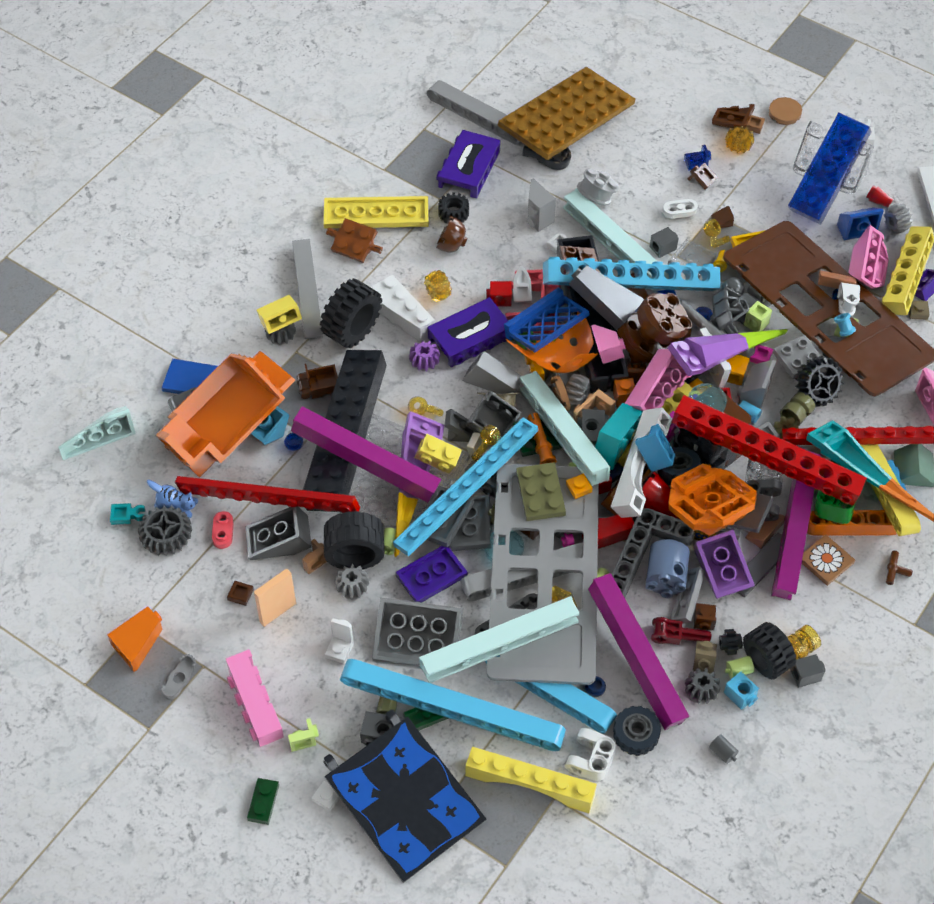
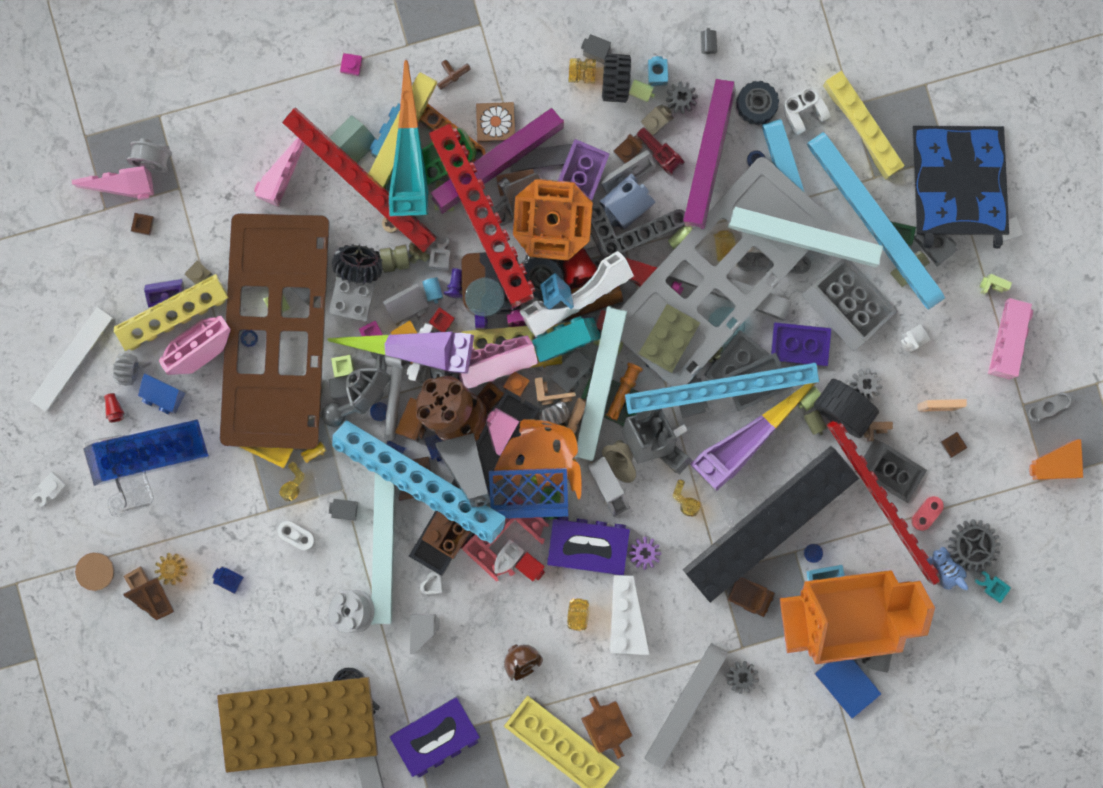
camera: 140 degrees left, 30 degrees up
(105, 430) = (952, 683): light aqua wedge -> none
(263, 801) = (1056, 260): dark green plate -> none
(279, 314) = (743, 679): light yellow brick -> none
(351, 313) = (682, 631): black tyre -> none
(365, 454) = (786, 470): magenta tile -> none
(438, 453) = (721, 435): light yellow brick -> none
(453, 201) = (491, 707): black tyre -> none
(490, 436) = (670, 416): clear yellow plate -> none
(579, 486) = (636, 319): light orange plate -> none
(703, 175) = (243, 555): bracket -> none
(724, 217) = (268, 496): reddish brown slope -> none
(730, 641) = (631, 113): black gear -> none
(833, 280) = (245, 347): nougat slope -> none
(844, 324) = (286, 297): medium azure bush -> none
(848, 297) = (254, 321): white piece -> none

